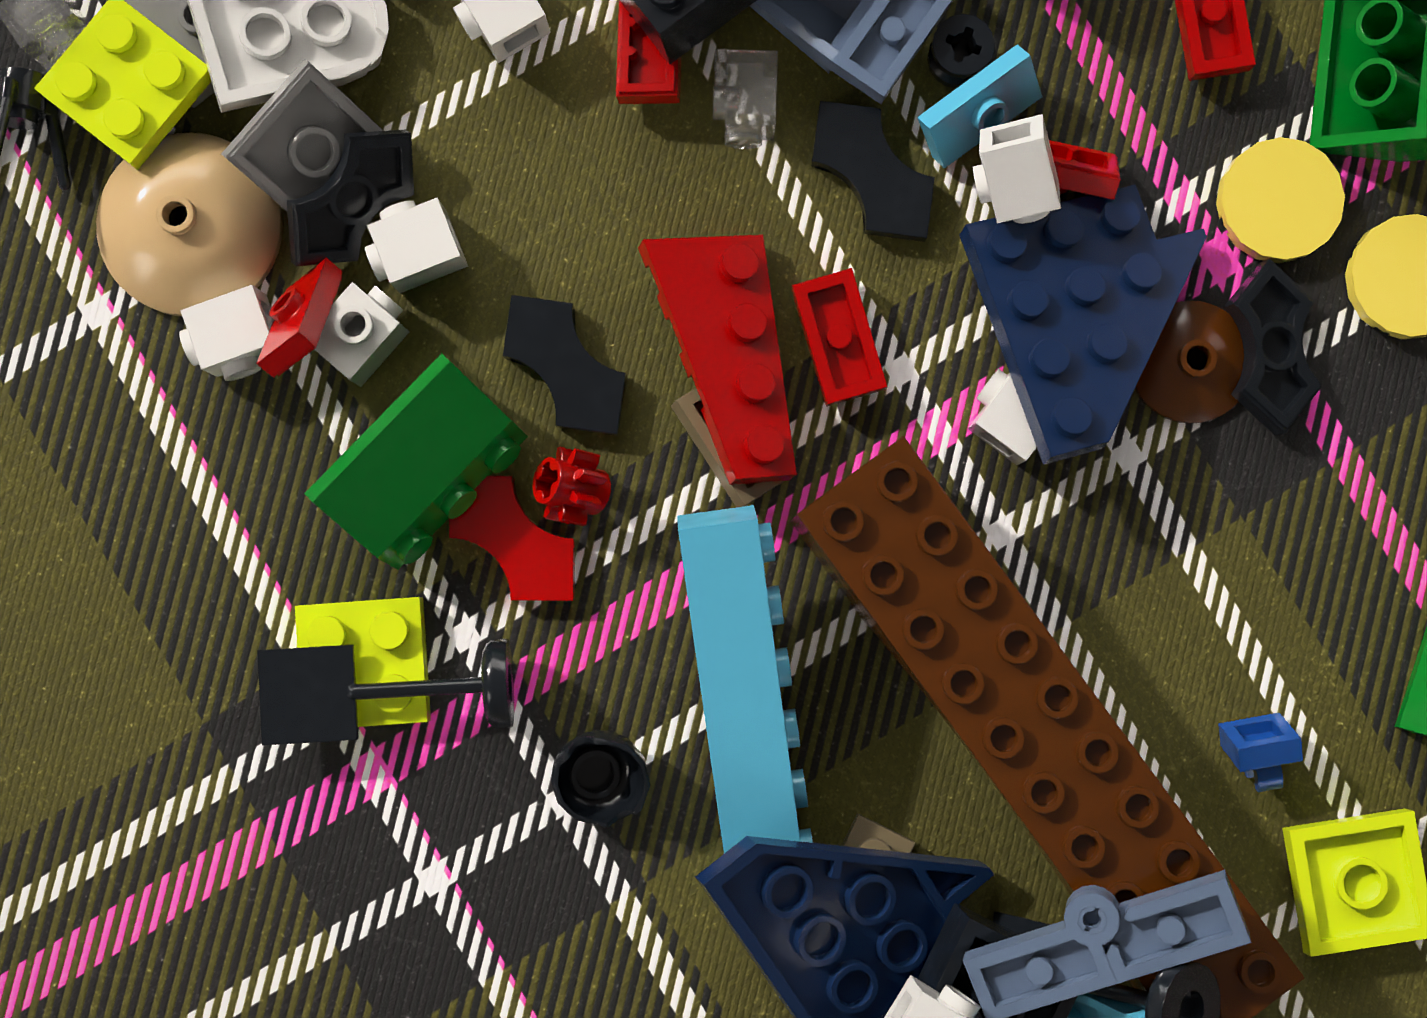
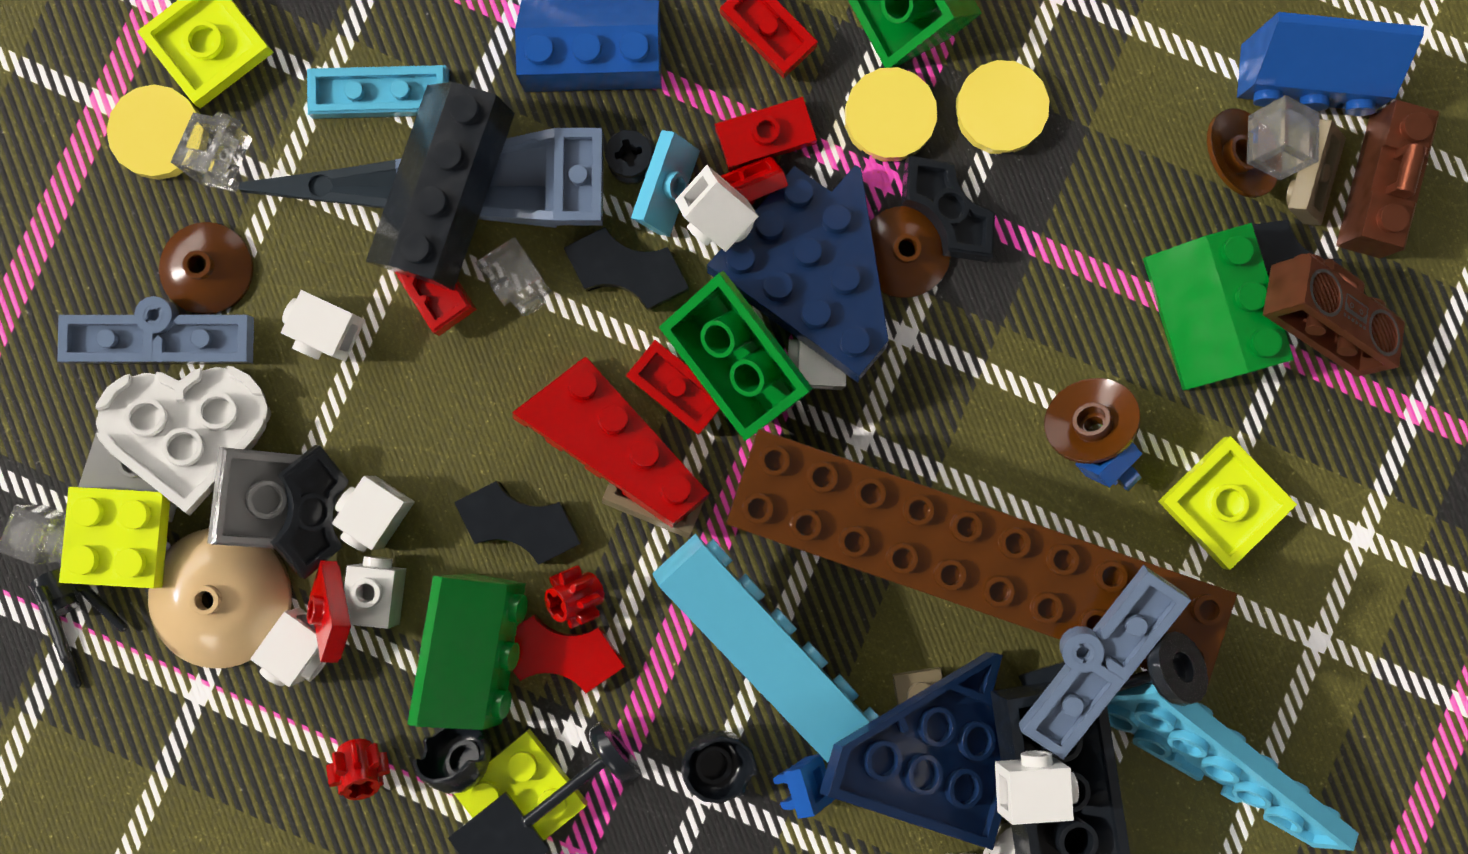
camera: 40 degrees left, 0 degrees up
(211, 509) = (357, 769): none -> red gear
(323, 570) = (454, 759): none -> black hair
(679, 863) = (804, 784): none -> blue tile
(929, 344) = (735, 356): none -> green slope
(1128, 126) = (765, 133): none -> red plate
(1276, 668) = (1088, 404): none -> reddish brown dish

